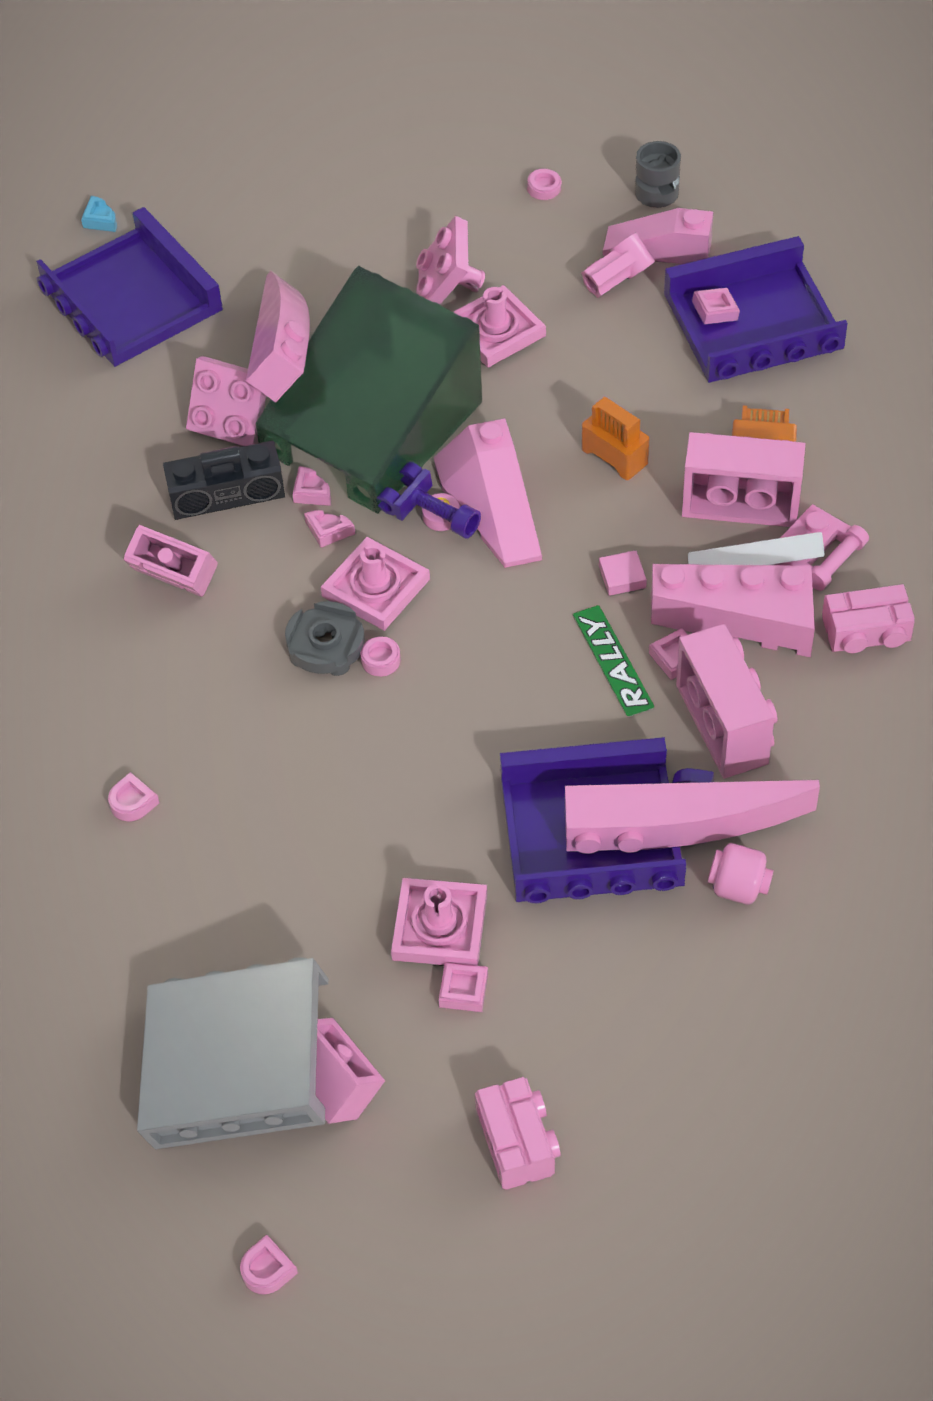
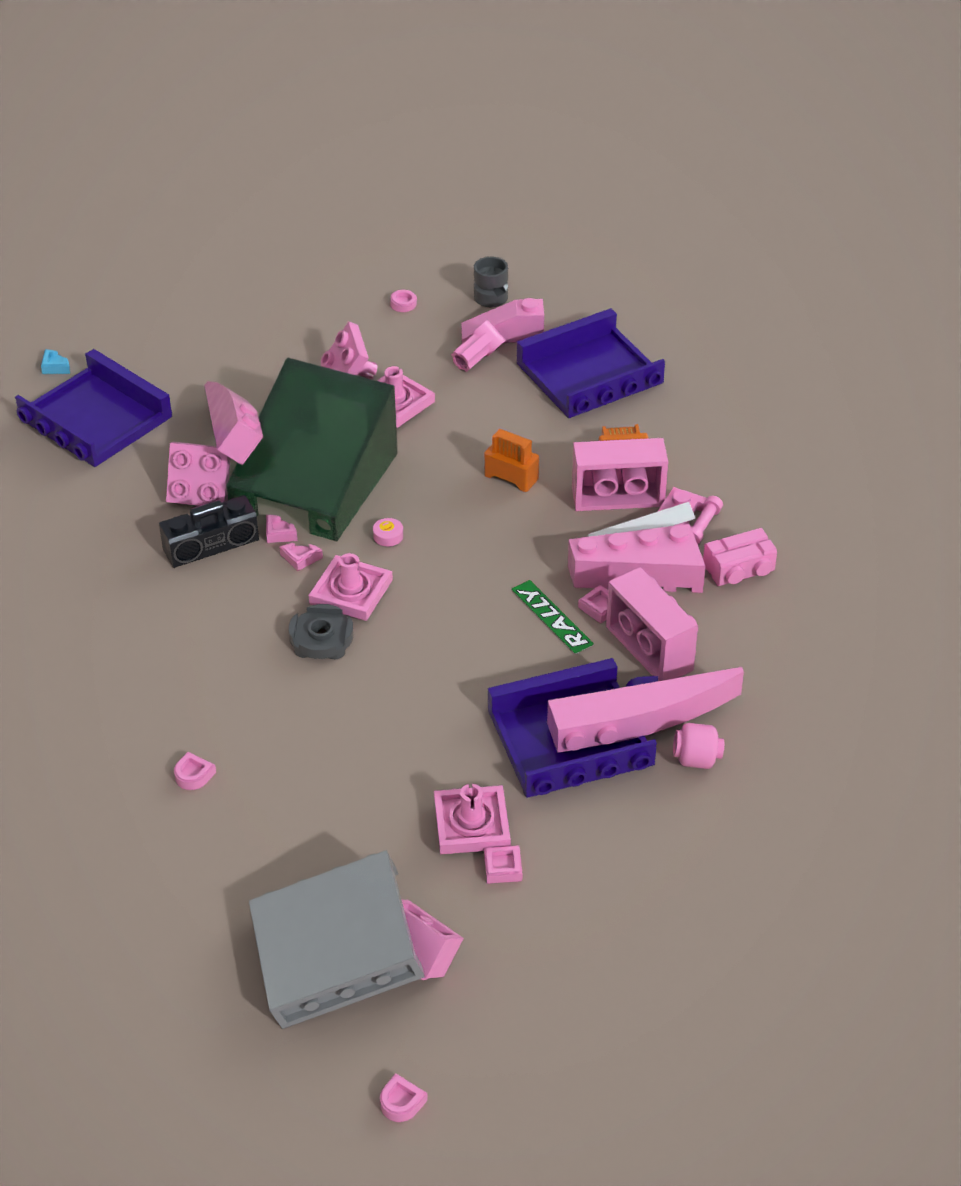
camera: 15 degrees left, 10 degrees down
(170, 560) = (182, 592): bright pink brick -> none
(380, 656) = (368, 639): bright pink tile -> none
(418, 480) = (365, 514): dark purple bar -> none
(485, 474) = (422, 505): bright pink wedge -> none
(516, 1133) = (578, 960): bright pink brick -> none
(622, 573) = (542, 554): bright pink tile -> none
(715, 305) = (560, 364): bright pink tile -> none

